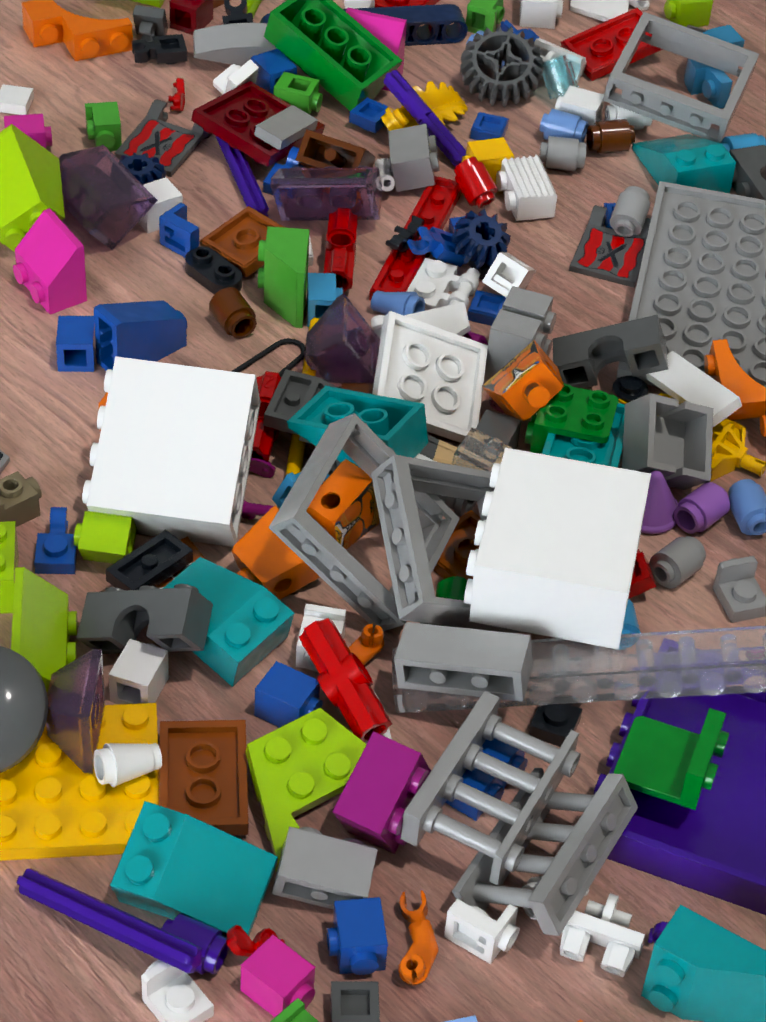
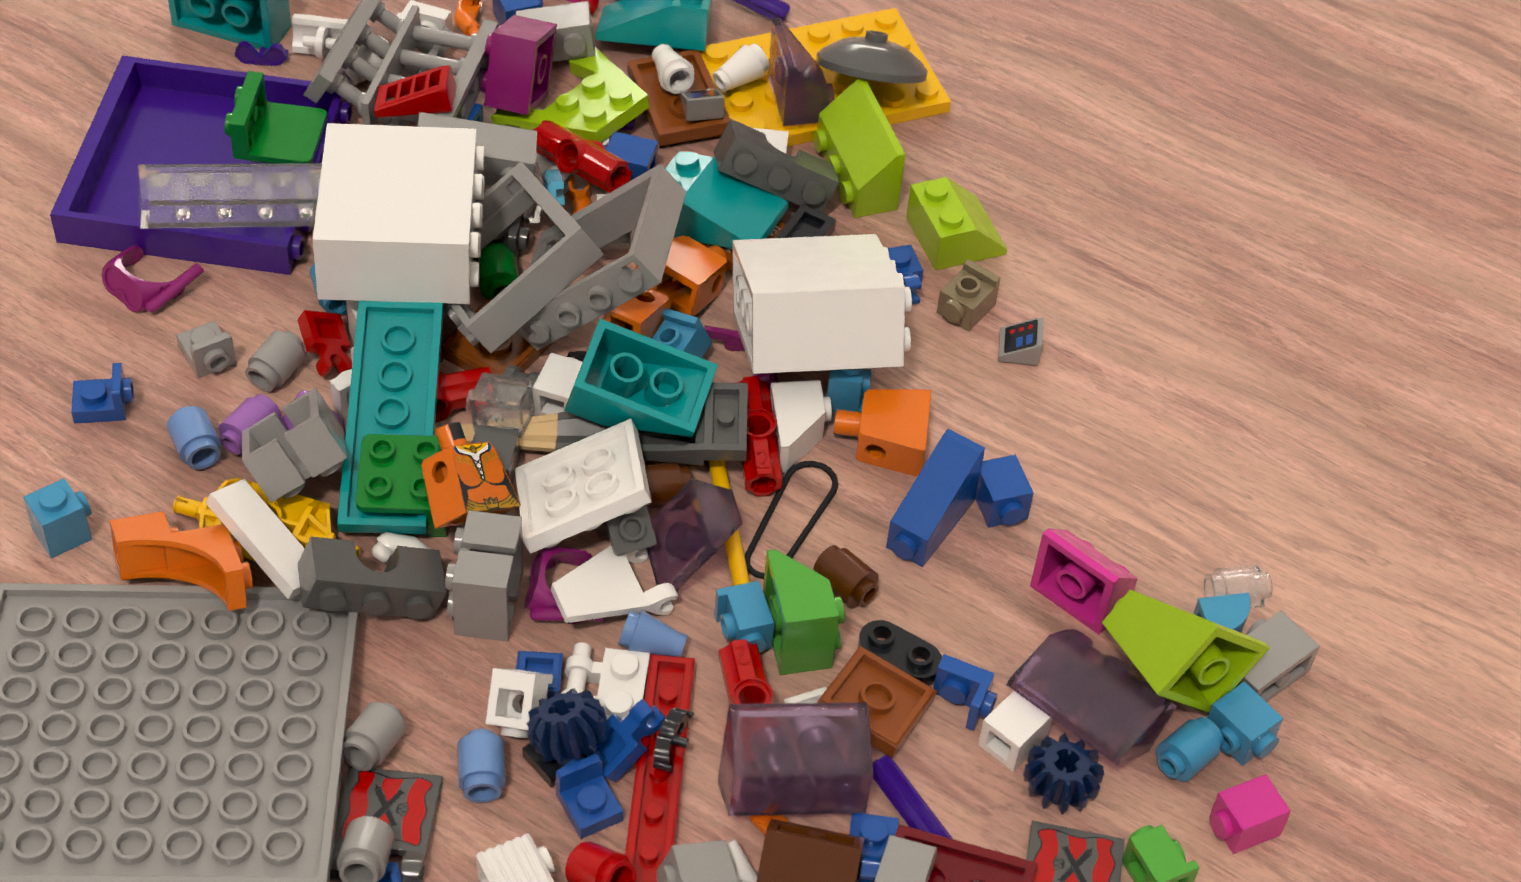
camera: 165 degrees right, 5 degrees up
(186, 733) = (702, 104): none -> light grey slope
(206, 774) = (673, 70): none -> white cone
(383, 646) = (554, 183): none -> medium azure tile
(500, 726) = (423, 92): none -> red slope
(543, 254) = (481, 765): none -> medium blue brick
(617, 281) = (373, 735): none -> light grey brick

